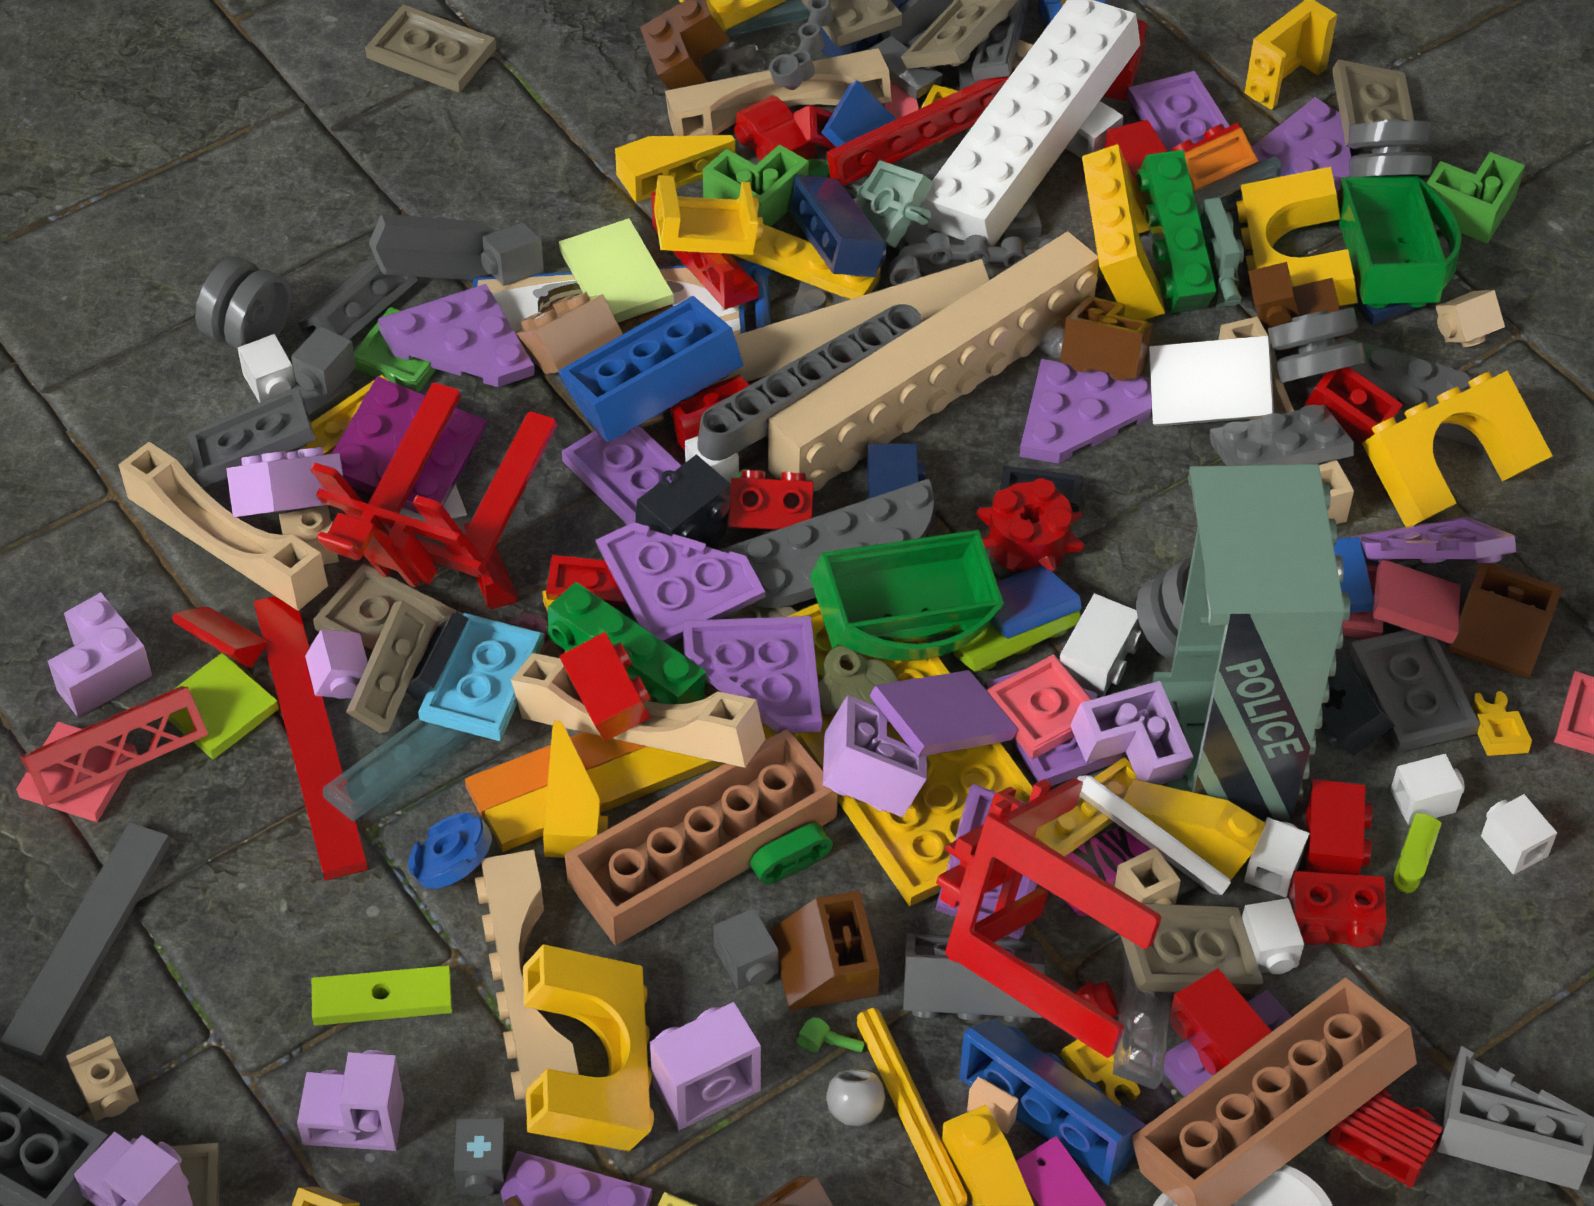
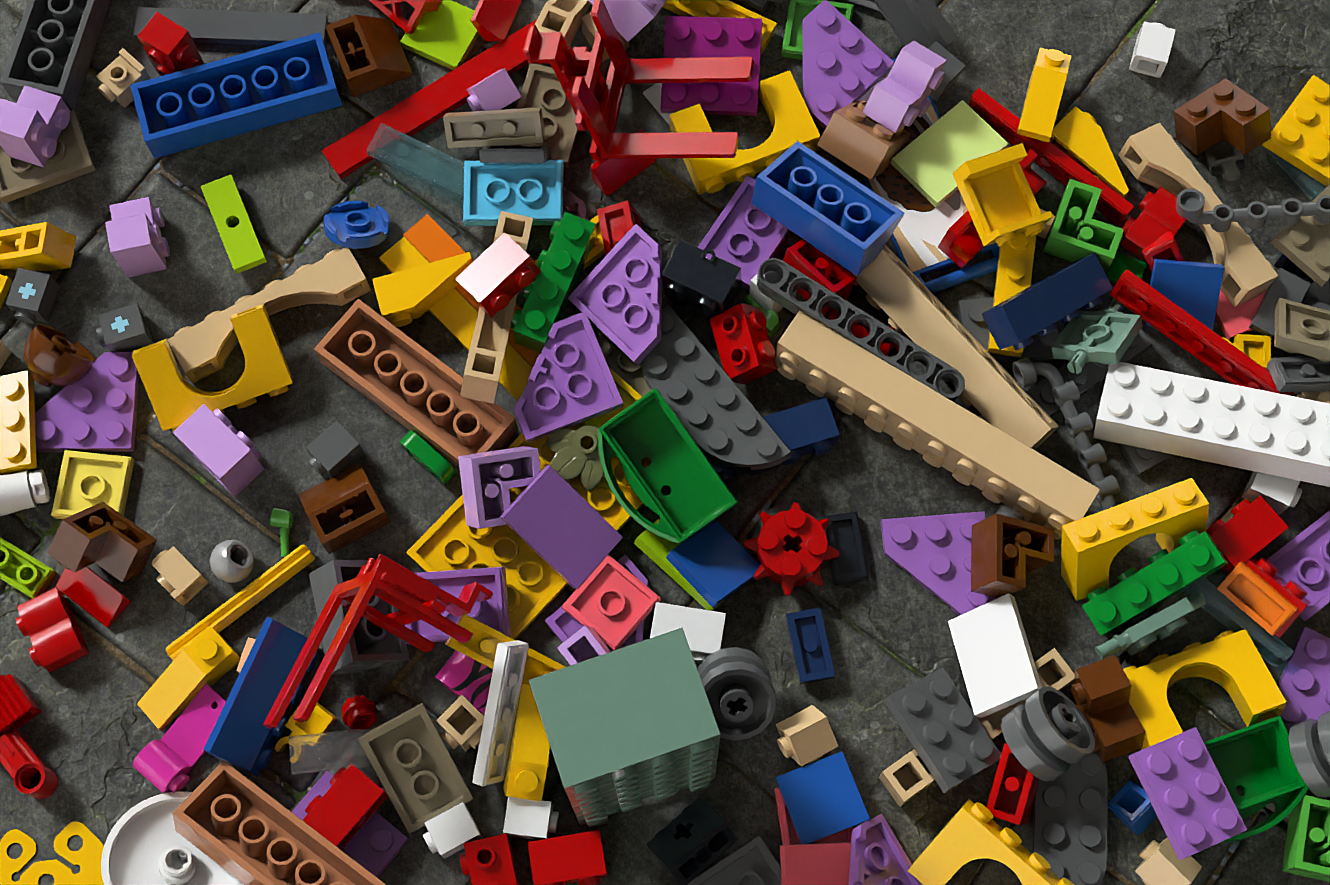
camera: 75 degrees right, 20 degrees up
(99, 995) = (168, 45): none -> red brick
(202, 943) = (236, 95): none -> blue brick
(214, 789) = (368, 52): none -> reddish brown slope
(505, 398) = (790, 124): none -> yellow arch
(529, 270) = (905, 91): none -> lavender brick
(572, 80) = (1152, 49): none -> white brick
(585, 167) = (1044, 94): none -> yellow slope
(636, 200) = (1049, 156): none -> red tile
(852, 1164) = (178, 575): none -> tan brick
(1144, 545) = (810, 646): none -> dark blue plate
(1394, 332) = (1133, 807): none -> blue slope
(1411, 249) = (1187, 793): none -> medium lavender plate

